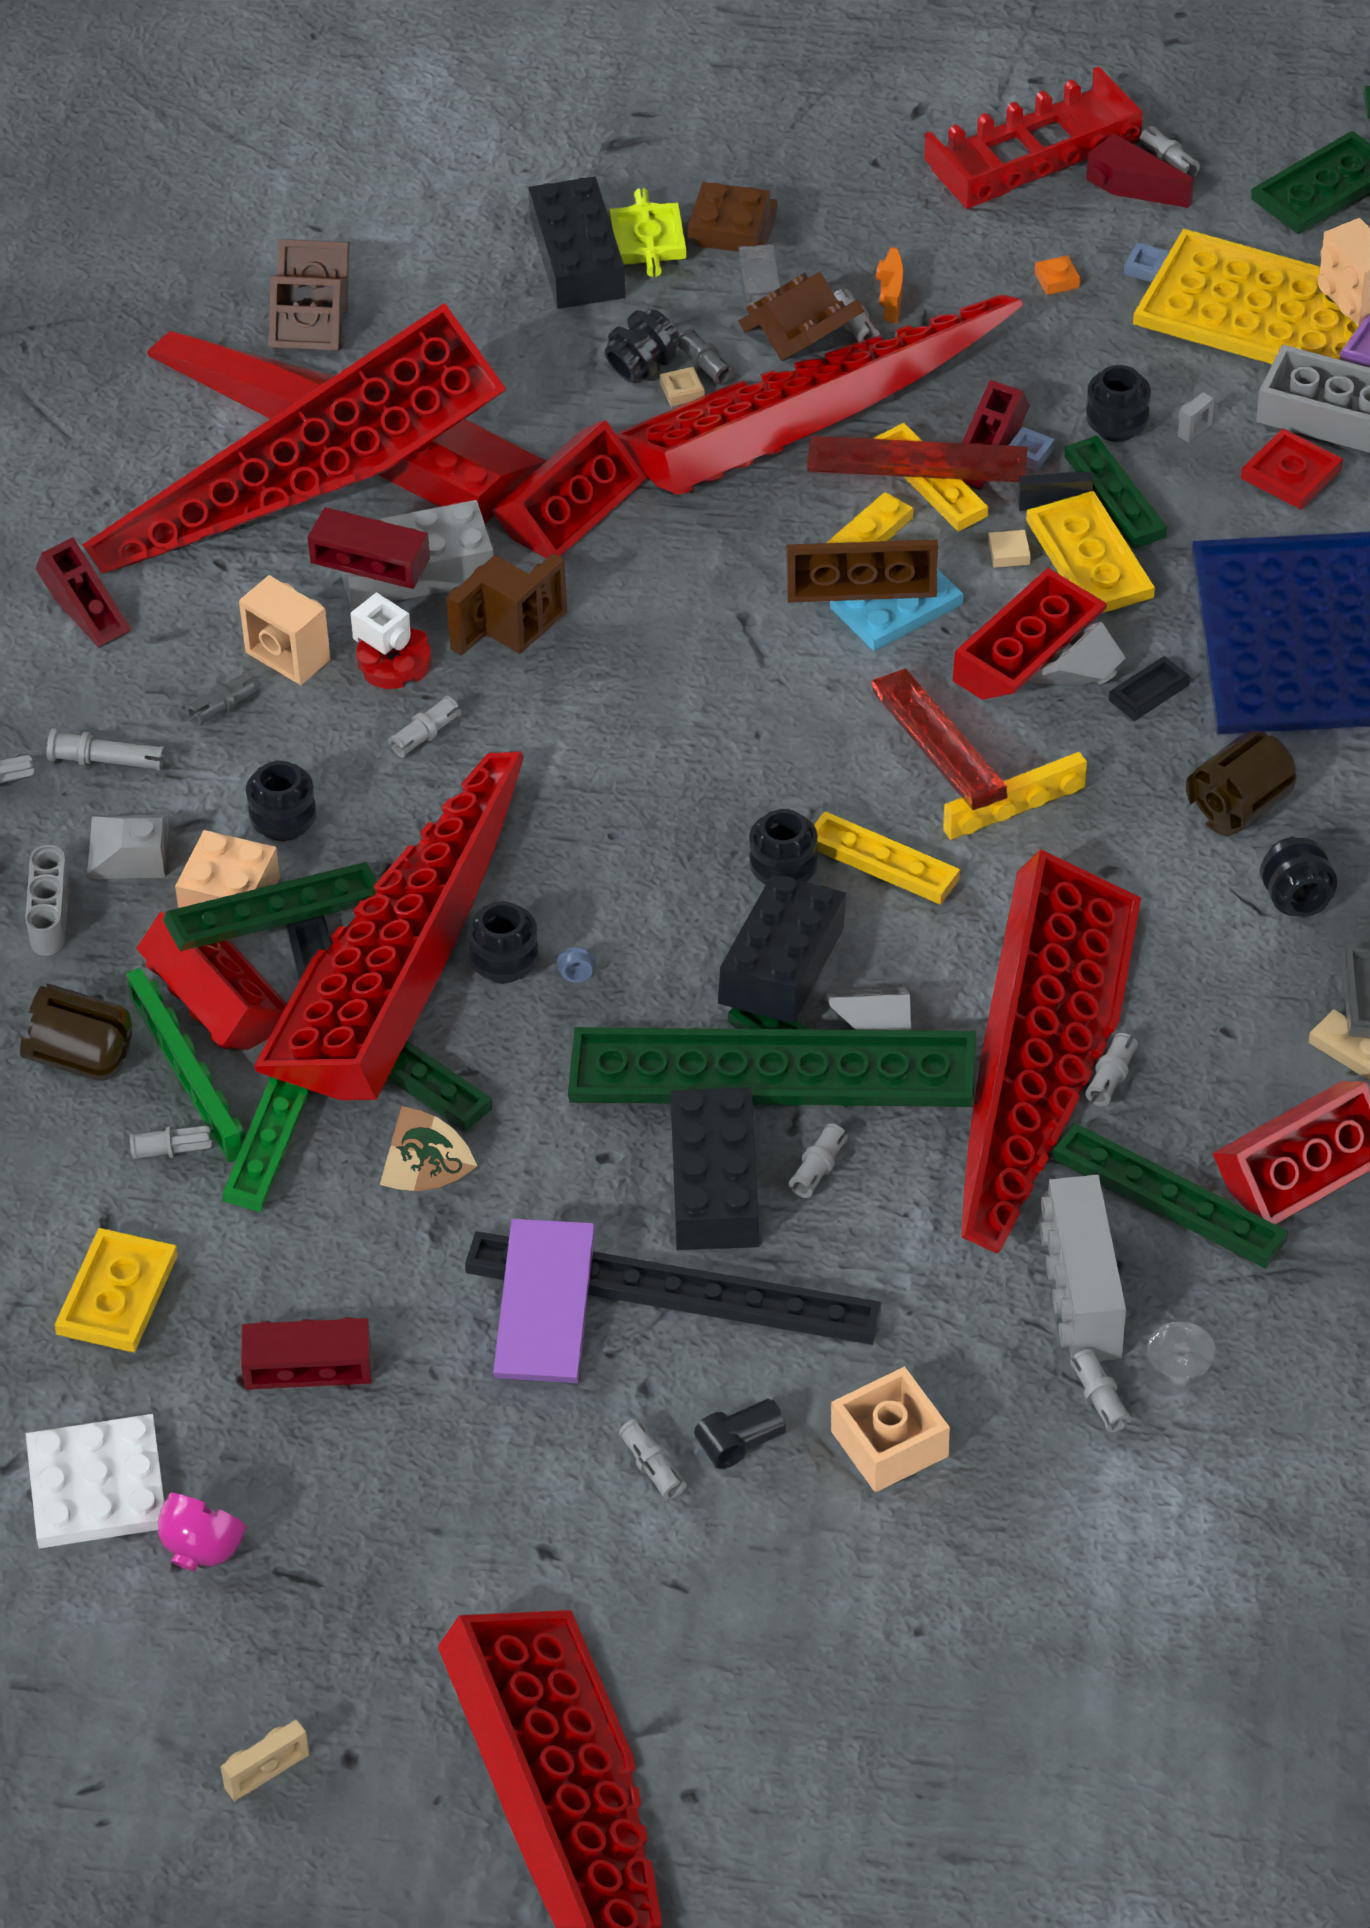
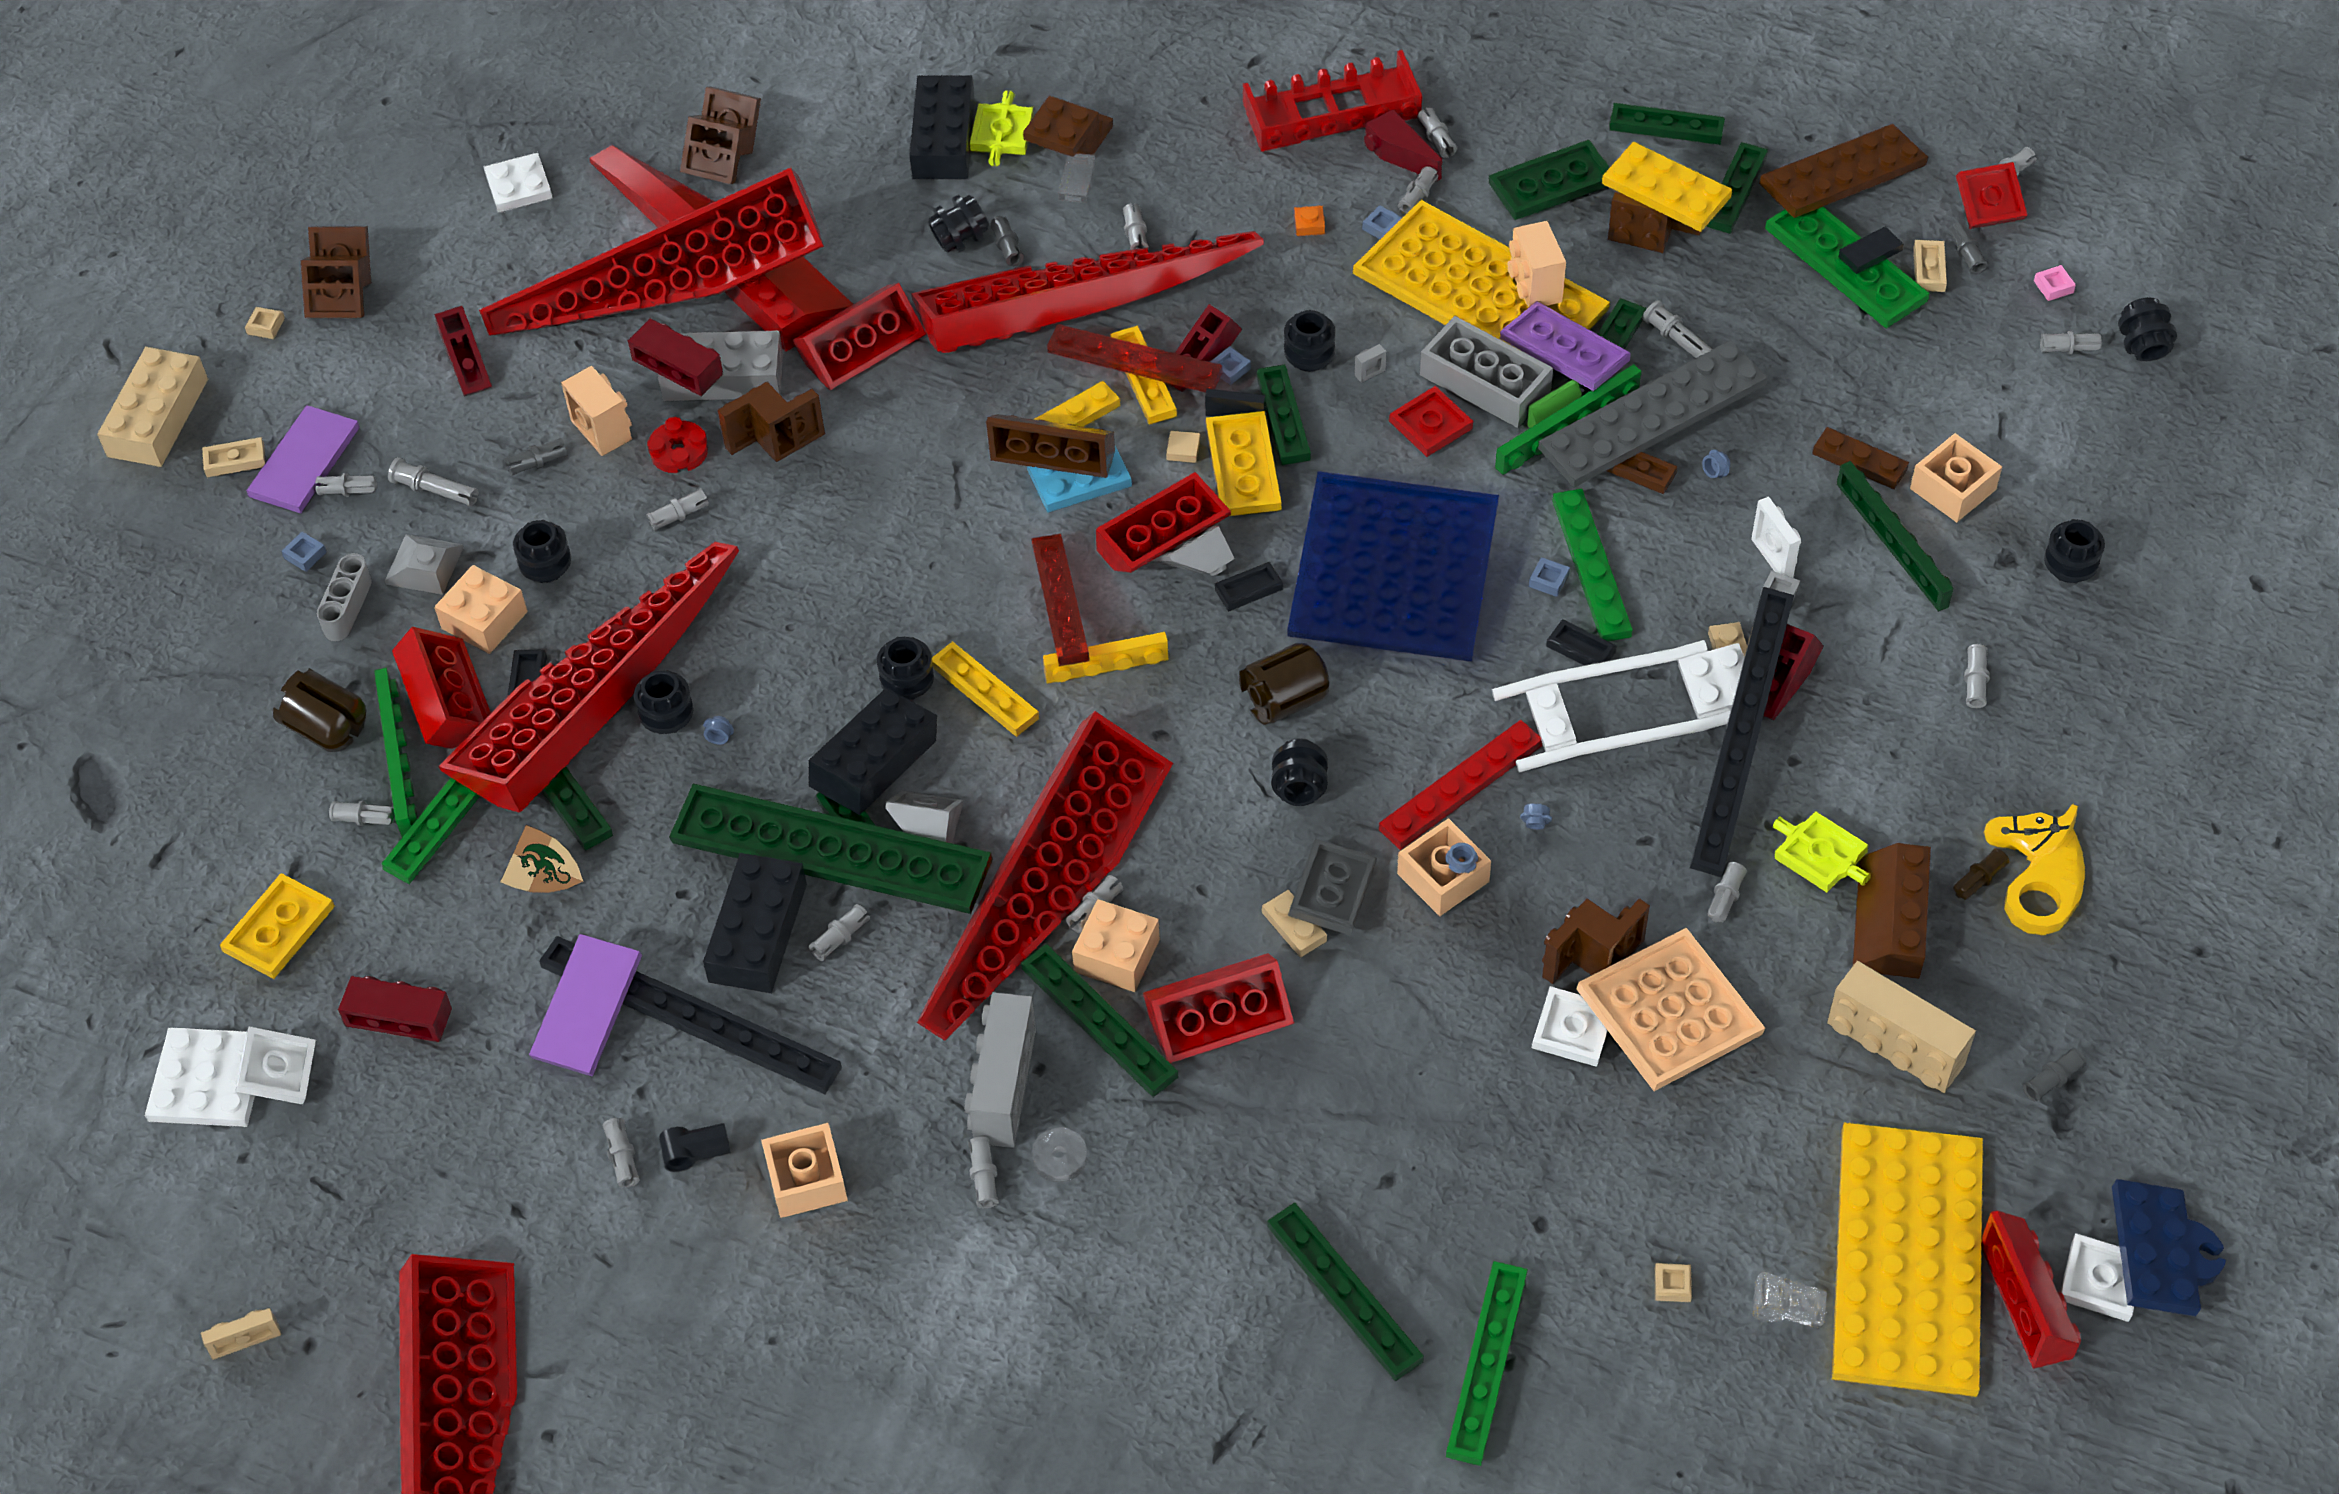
camera: 15 degrees right, 5 degrees up
(68, 392) = (518, 182): none -> white plate
(184, 1446) = (275, 1065): none -> white plate
(198, 1533) = (258, 1138): dark pink cylinder -> none
(270, 906) = (497, 638): dark green plate -> none
(386, 629) = (671, 426): white brick -> none
(681, 386) = (981, 261): tan tile -> none
(799, 314) = (1088, 219): reddish brown bracket -> none
(891, 285) = (1173, 212): orange slope -> none
(1159, 1108) = (1116, 945): none -> light nougat brick
(1173, 219) = (1418, 189): none -> light grey pin

